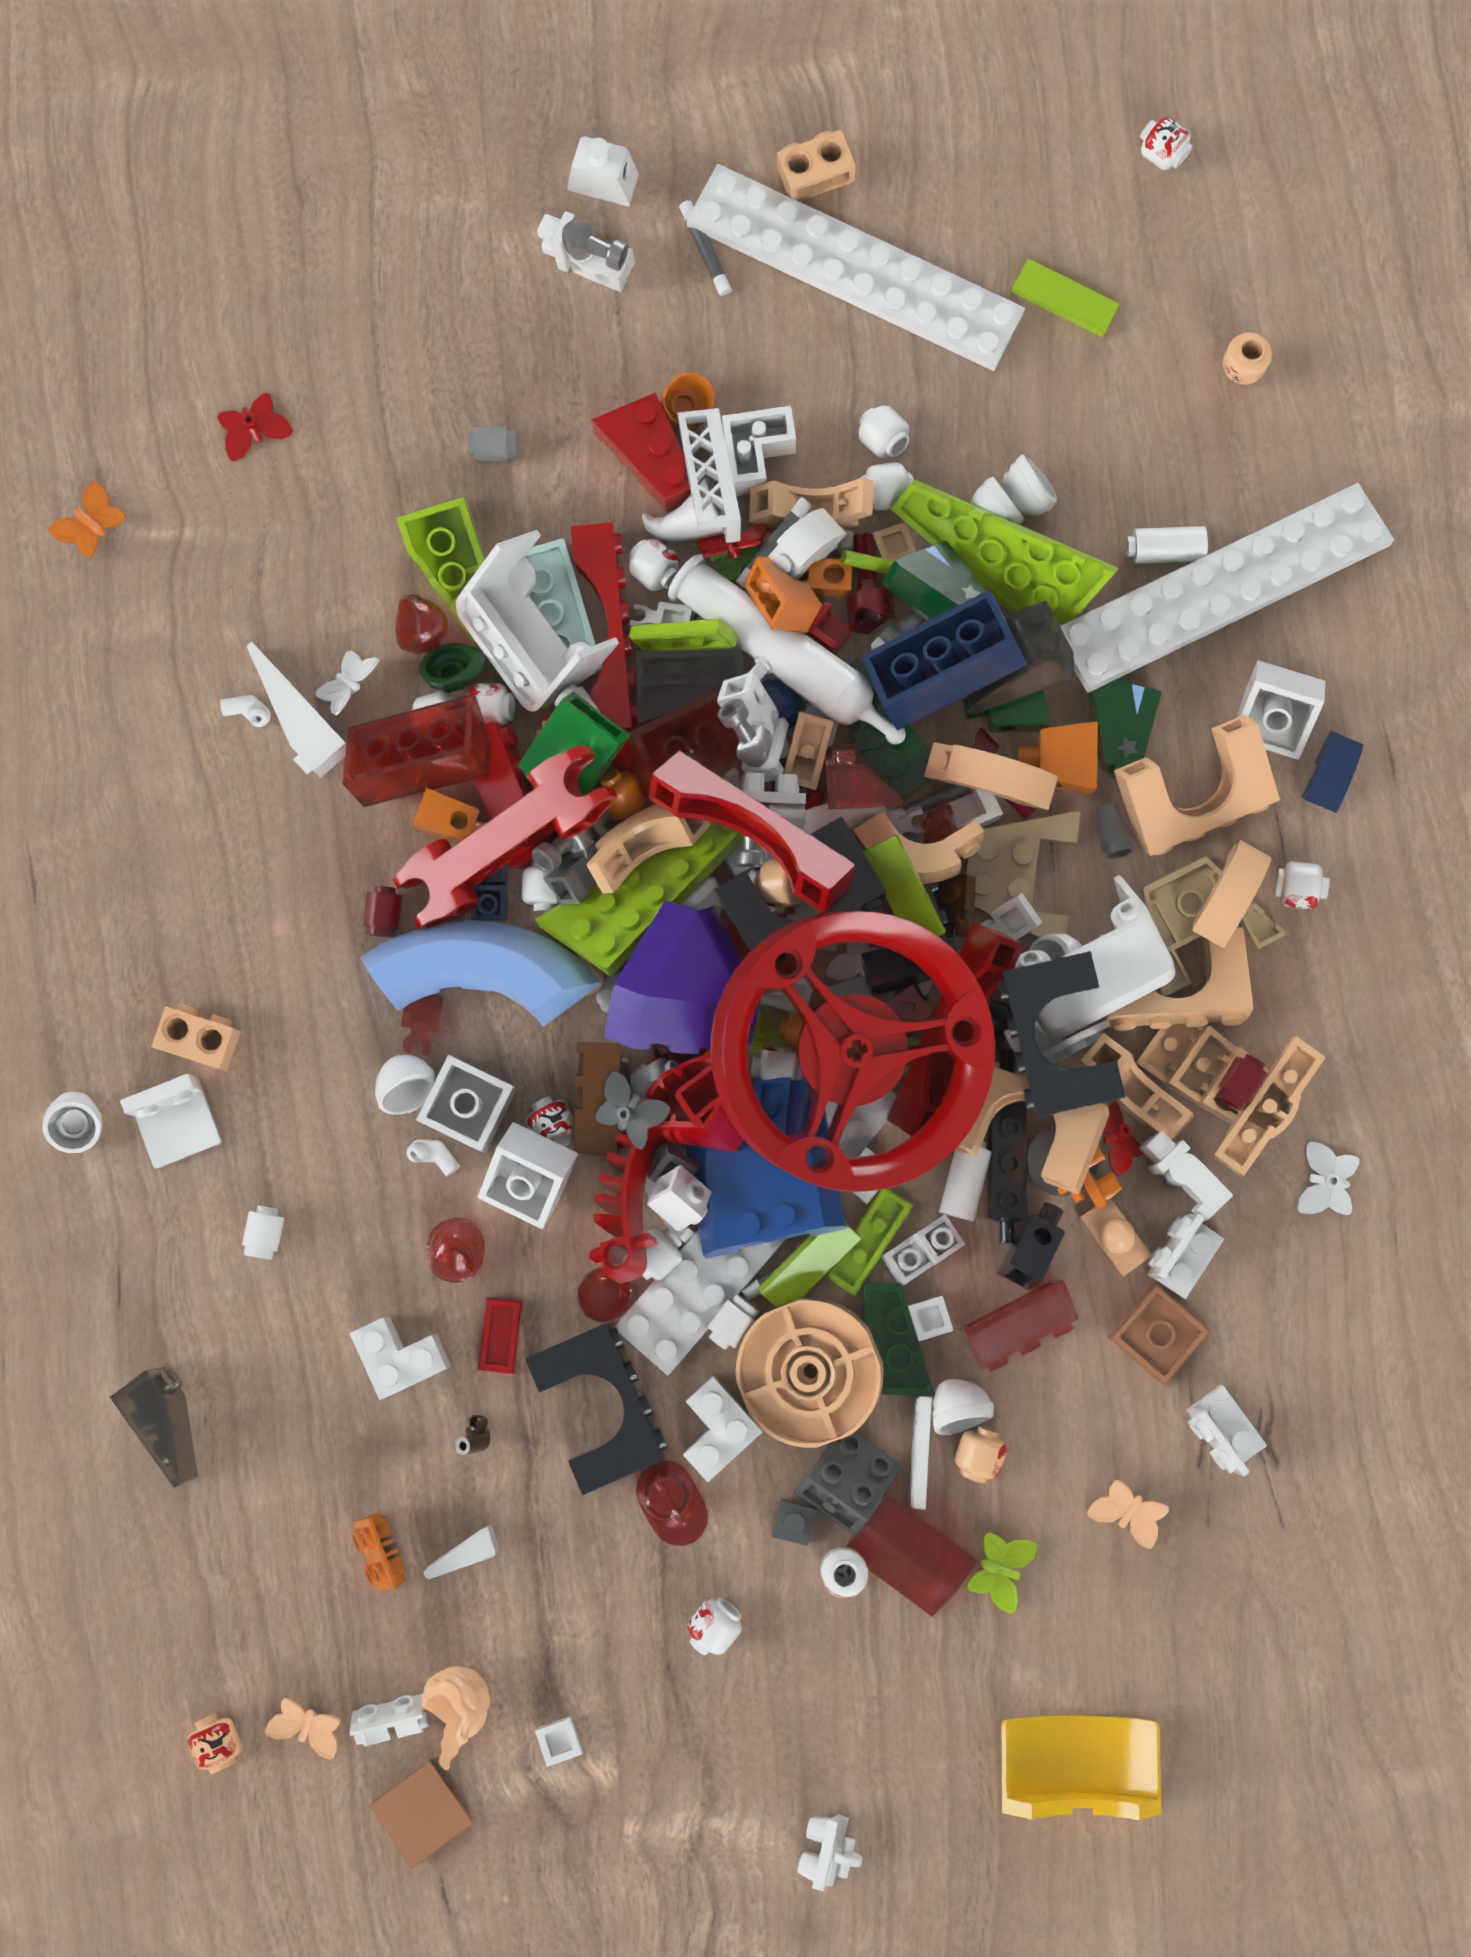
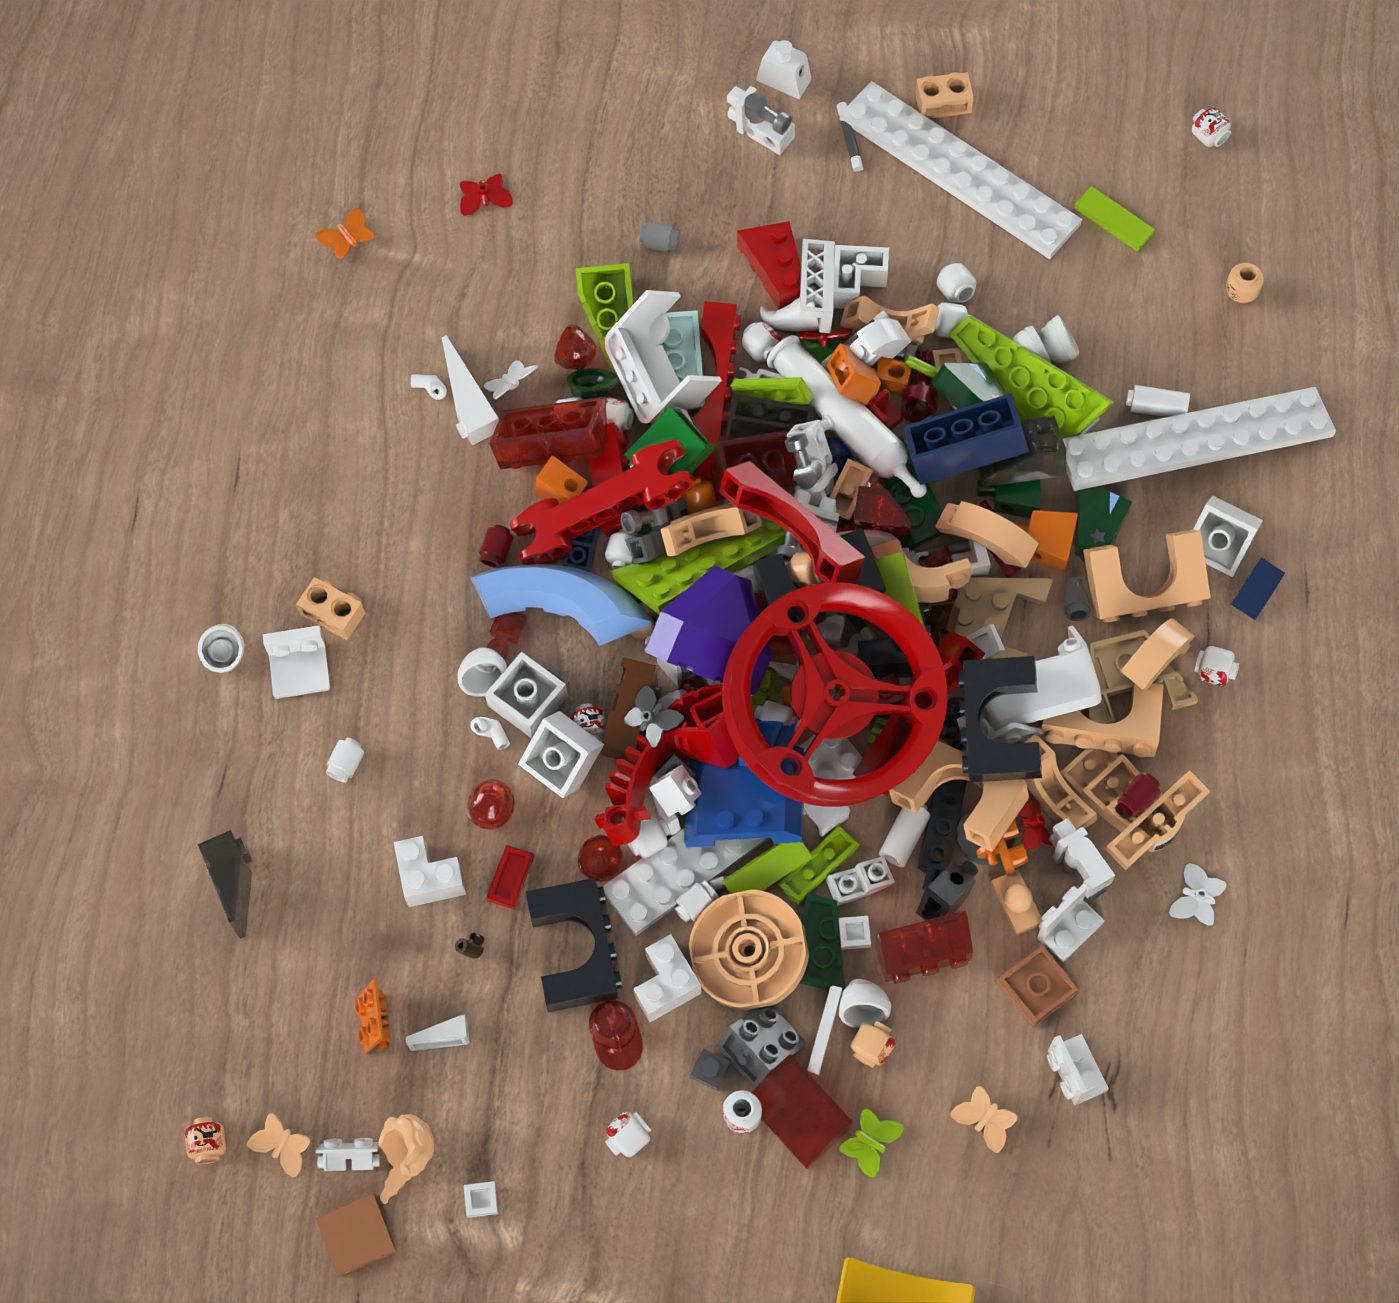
camera: 10 degrees right, 15 degrees down
(686, 394) = (815, 227): orange hair -> none

